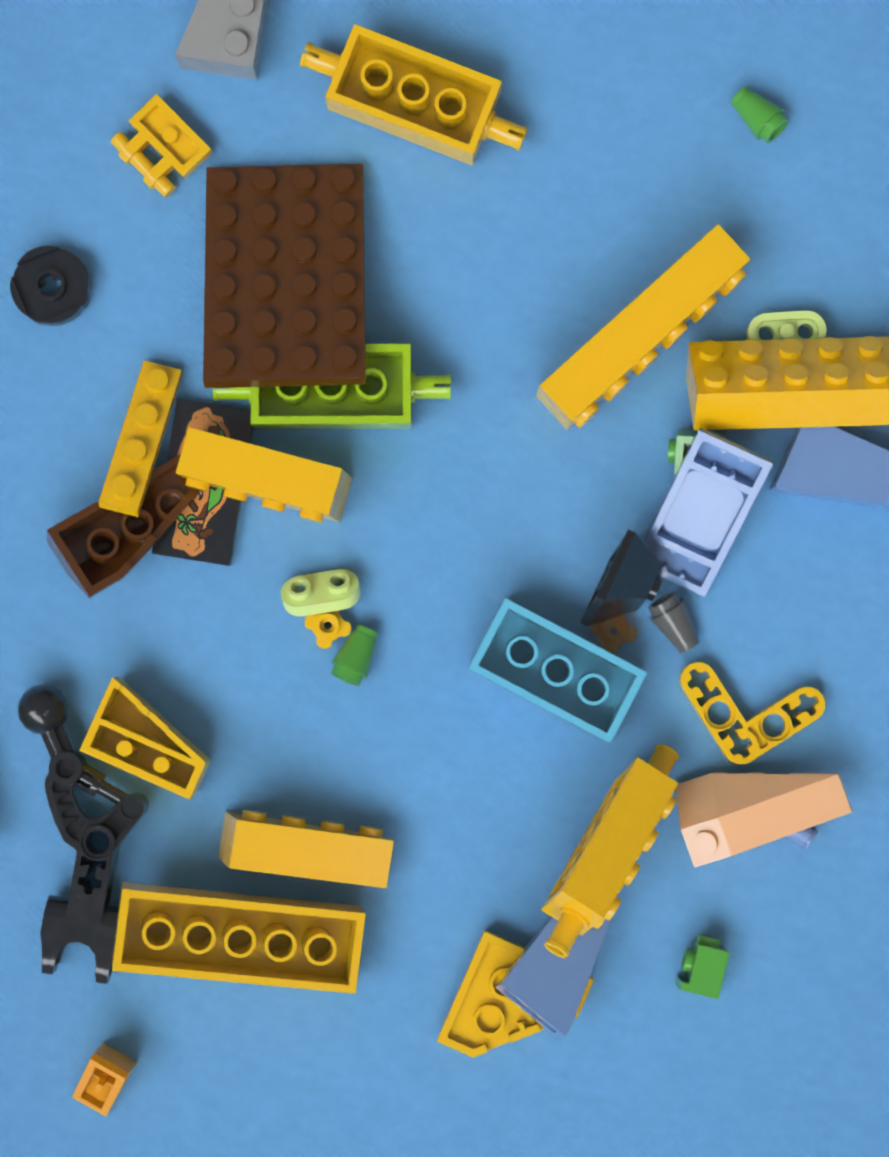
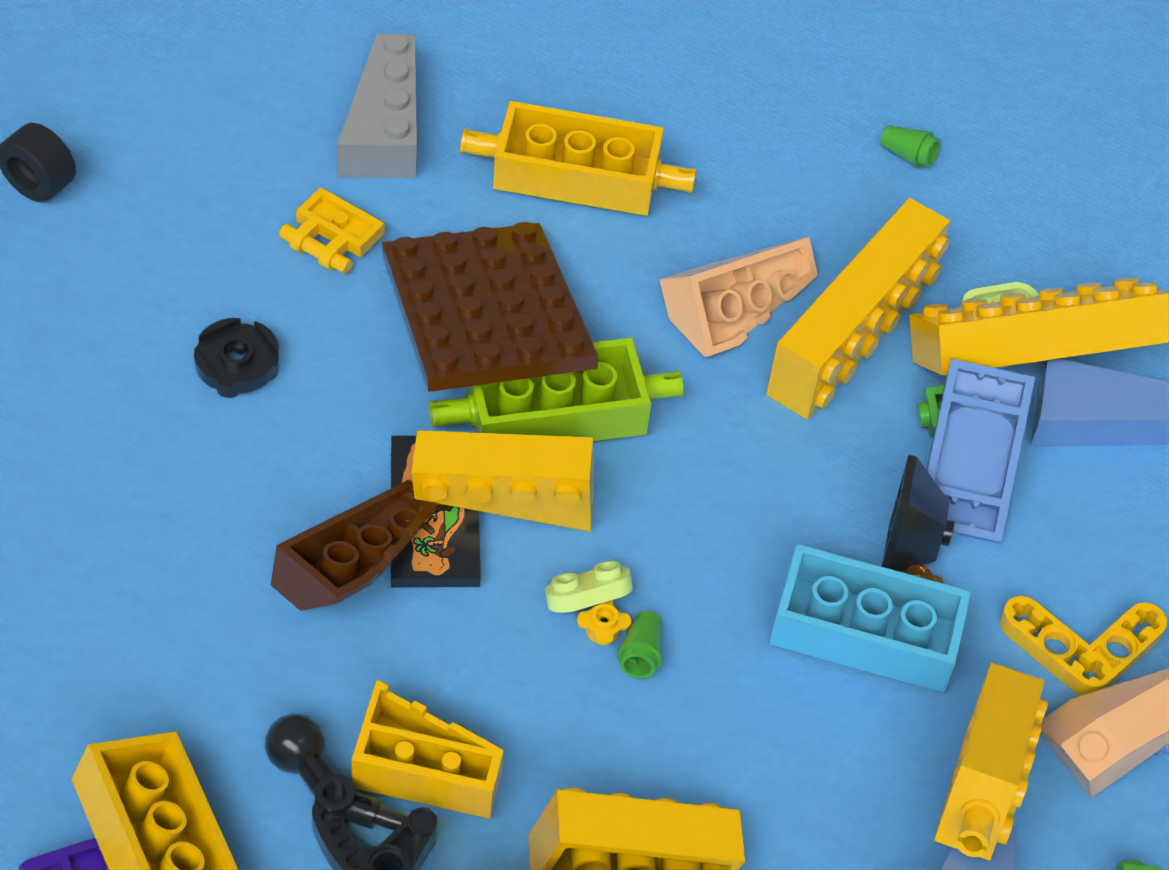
camera: 15 degrees left, 35 degrees down
(140, 439) = (360, 468): yellow plate -> none
(524, 282) = (730, 297): none -> light nougat wedge
(674, 621) = (978, 564): dark grey cone -> none

